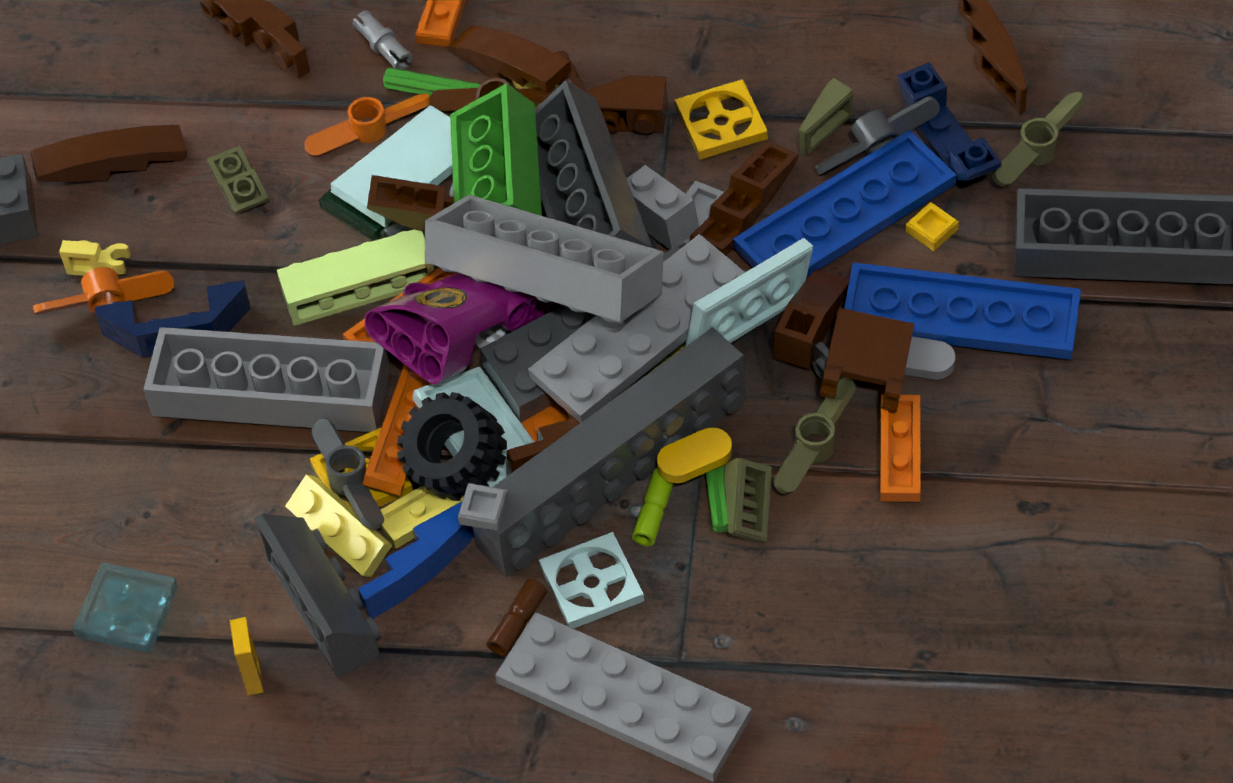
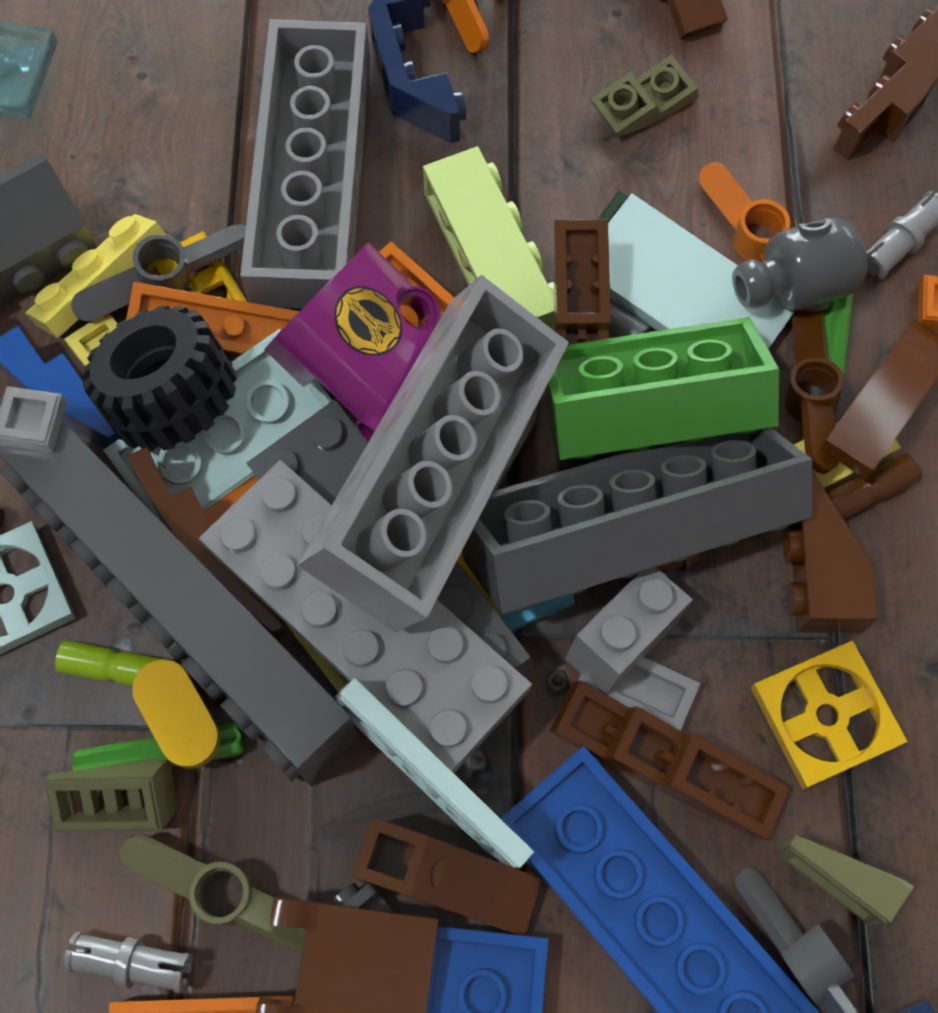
camera: 80 degrees right, 15 degrees up
(411, 85) = (805, 267): none -> dark grey piece
(855, 489) = (128, 962): none -> light grey pin

